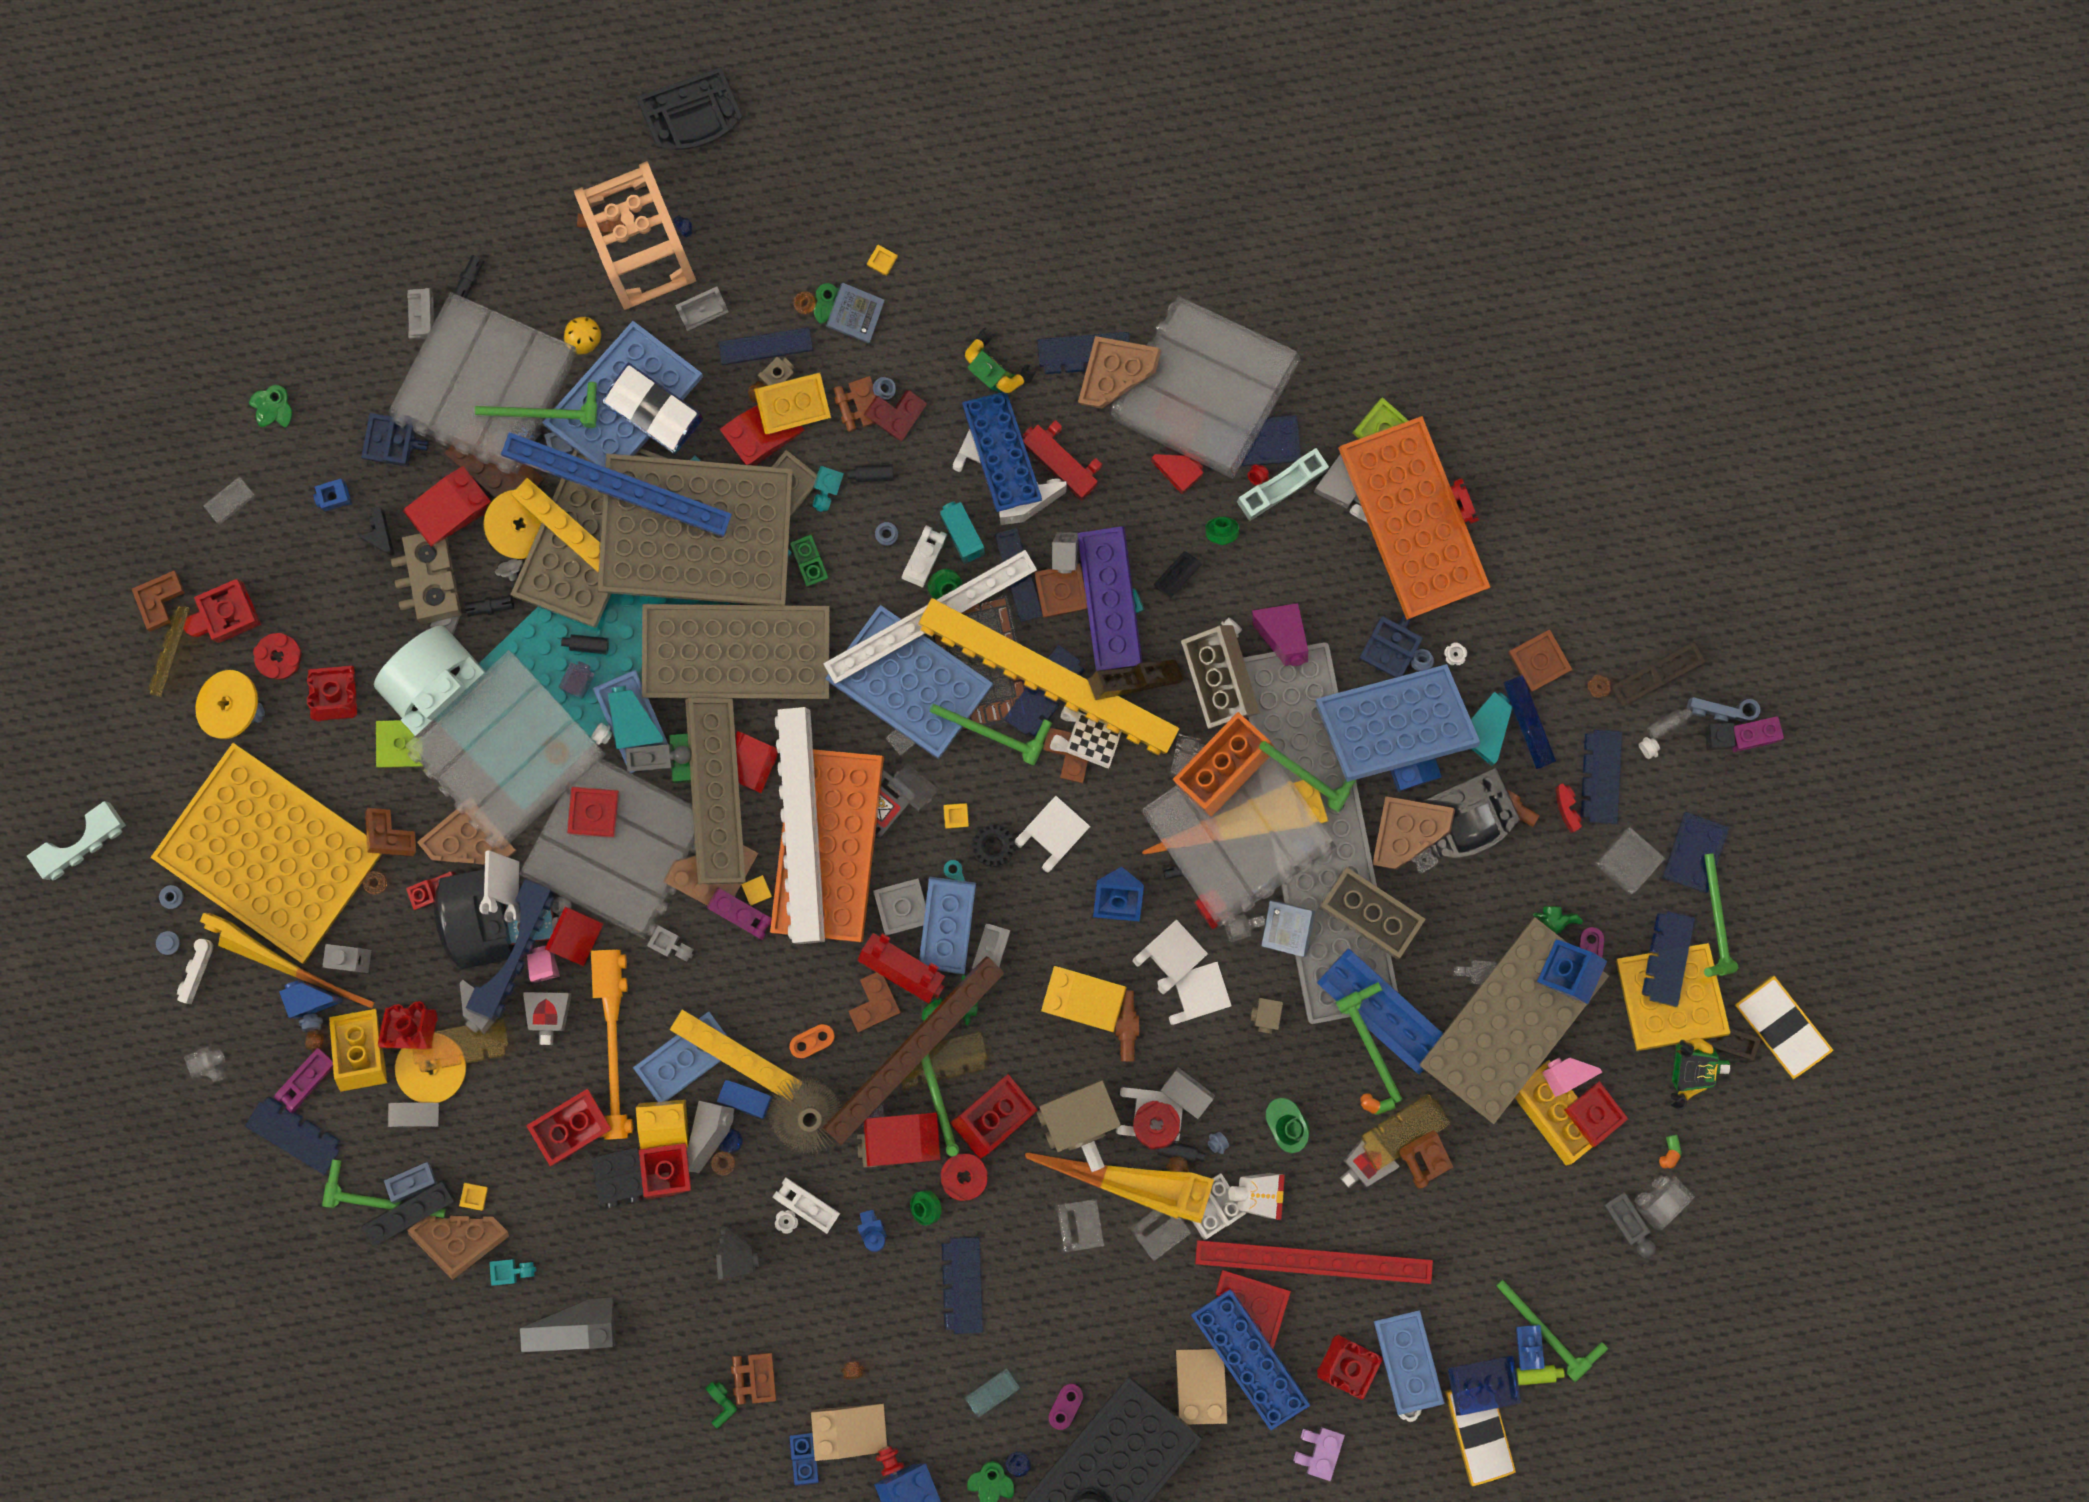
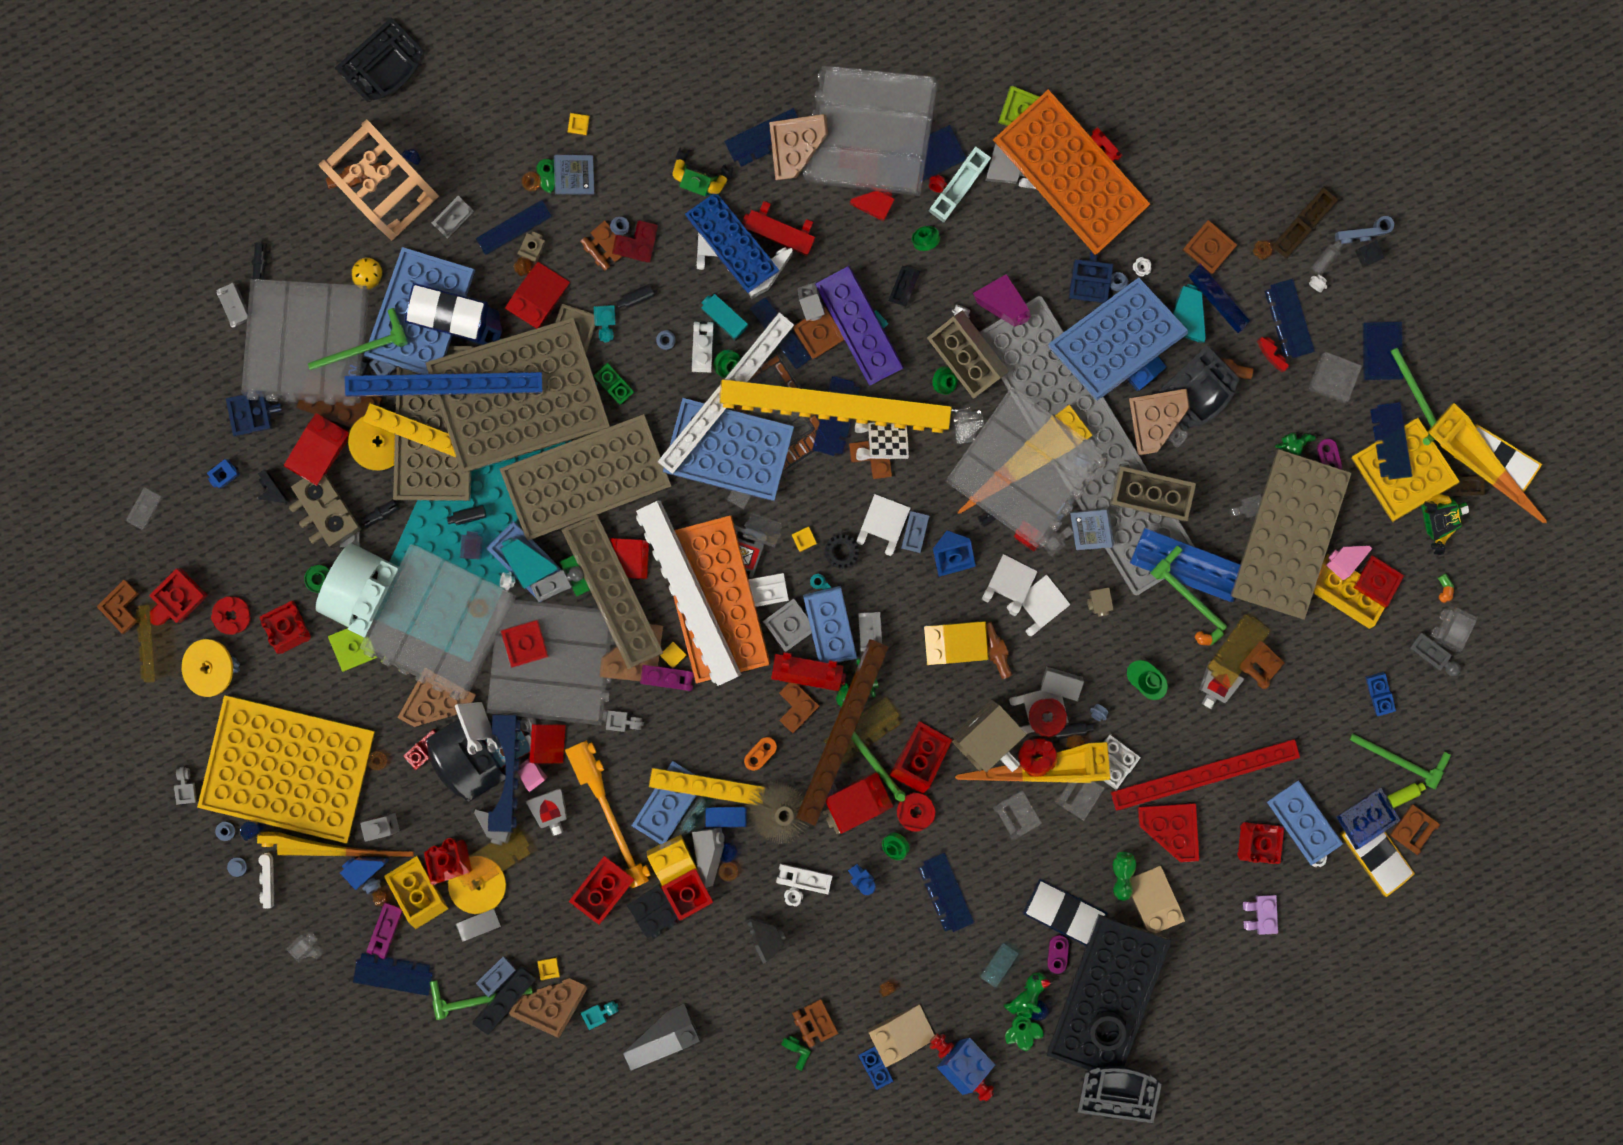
camera: 15 degrees left, 5 degrees up
(101, 824) = (148, 796): light aqua arch -> none
(144, 835) = (185, 791): none -> light grey plate
(198, 905) = (250, 829): none -> clear blue brick
(269, 409) = (146, 424): green plate -> none
(383, 839) = (370, 725): dark orange plate -> none
(387, 647) = (315, 577): none -> green plate
(509, 569) = (383, 479): light grey plant -> none
(695, 446) = (491, 328): none -> dark blue slope
(699, 1087) = (689, 820): none -> clear light blue slope
(792, 403) = (553, 265): yellow plate -> none
(894, 857) = (769, 589): none -> white plate
(1009, 1446) = (1027, 1000): none -> green animal
(1029, 751) = (842, 466): bright green bar -> none
(1085, 855) = (915, 532): none -> sand blue plate
(1088, 1358) = (1062, 912): none -> white slope
(1123, 1155) = (1044, 764): none -> red plate
(1130, 680) = (902, 381): dark brown slope -> none
(1179, 1334) = (1124, 868): none -> green animal
(1183, 697) = (944, 380): none -> green plate
(1223, 764) = (998, 423): orange brick -> none
(1250, 1359) = (1185, 866): blue plate -> none
(1260, 1195) = (1146, 740): white torso -> none
(1336, 797) = (1092, 413): bright green bar -> none
(1530, 1347) = (1392, 776): blue hips -> none
(1530, 1413) = (1409, 825): none -> dark orange plate
(1551, 1246) = (1380, 694): none -> blue slope
(1572, 971) = (1322, 481): blue slope -> none
(1751, 988) = (1463, 441): none -> yellow plate
(1757, 734) = (1398, 241): magenta bracket -> none

